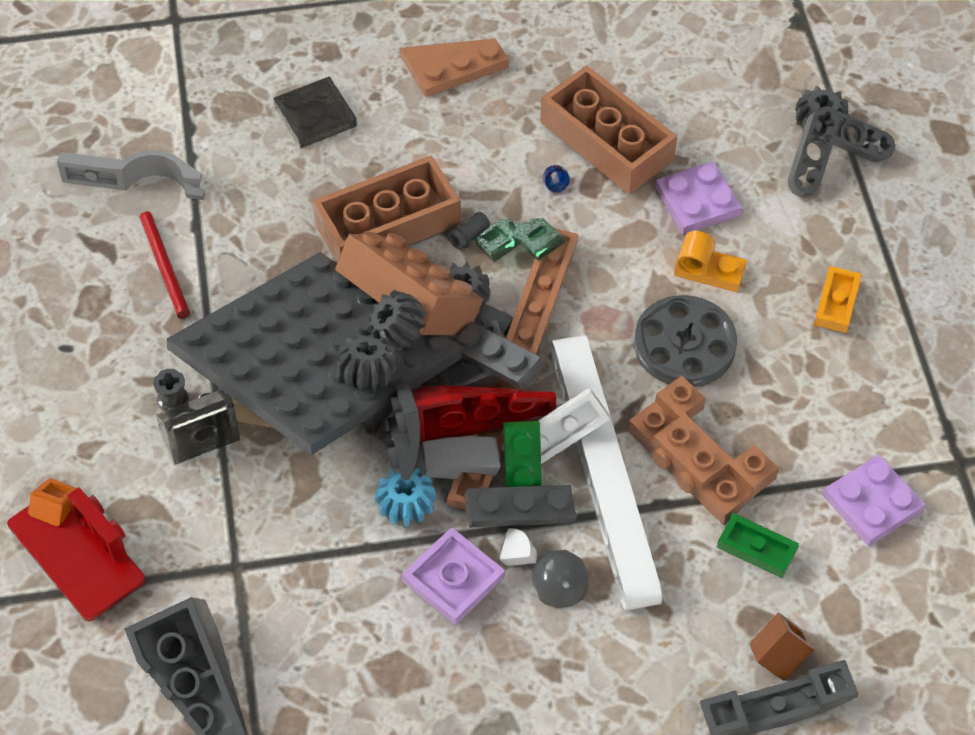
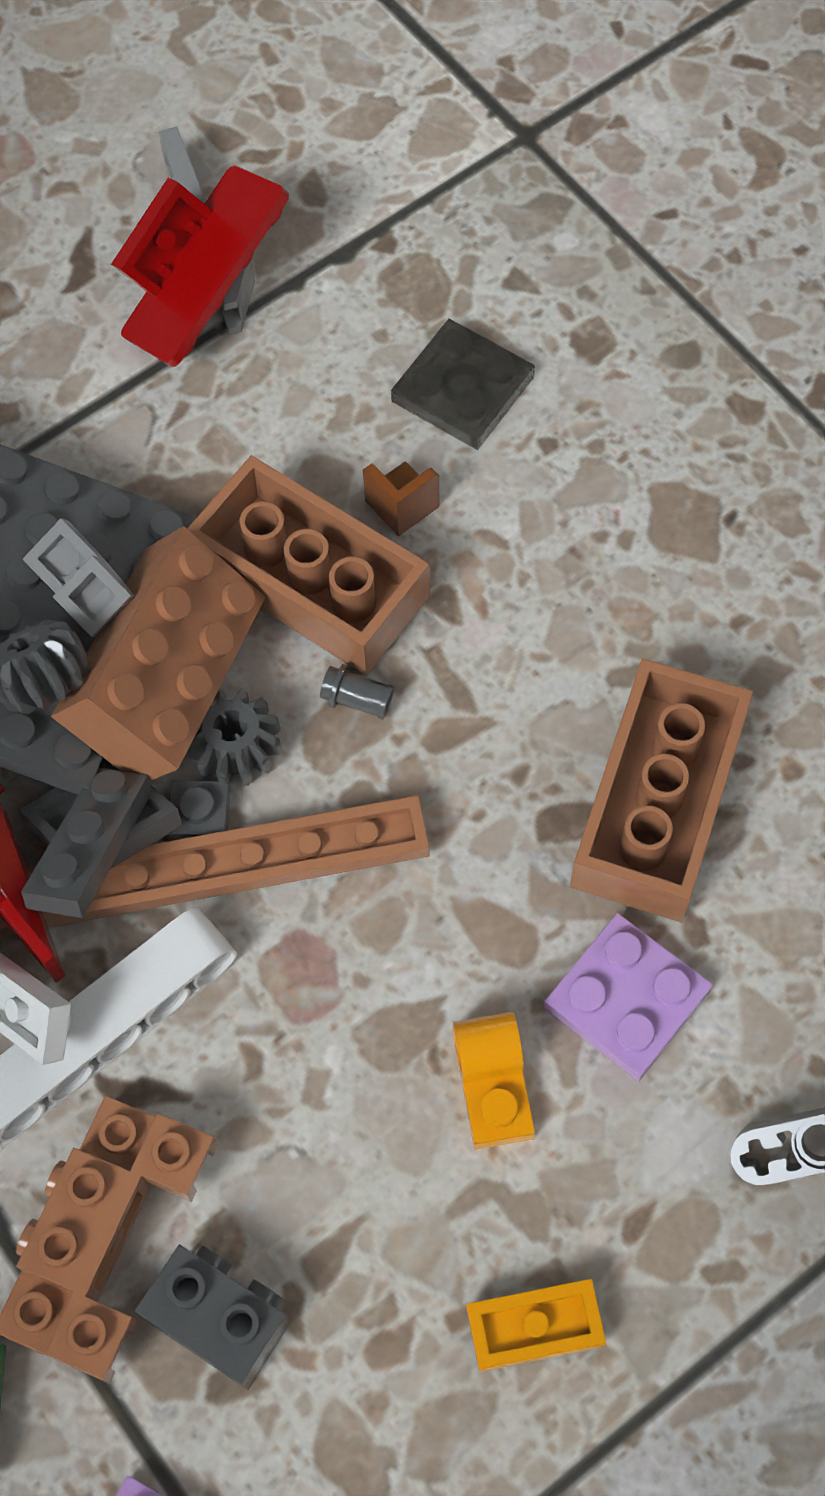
camera: 65 degrees right, 10 degrees up
(164, 265) = (75, 357): red bar -> none
(166, 176) = (191, 256): none -> red bracket
(345, 293) = (79, 577): none -> light grey slope
(367, 163) = (401, 495): none -> dark orange panel
(452, 64) = (673, 512): nougat wing -> none
(535, 236) = (385, 780): clear green tile -> none
(562, 176) = (523, 756): clear blue hinge -> none
(673, 333) = (303, 1139): dark grey wedge -> none
(767, 419) = (214, 1314): none -> dark grey brick

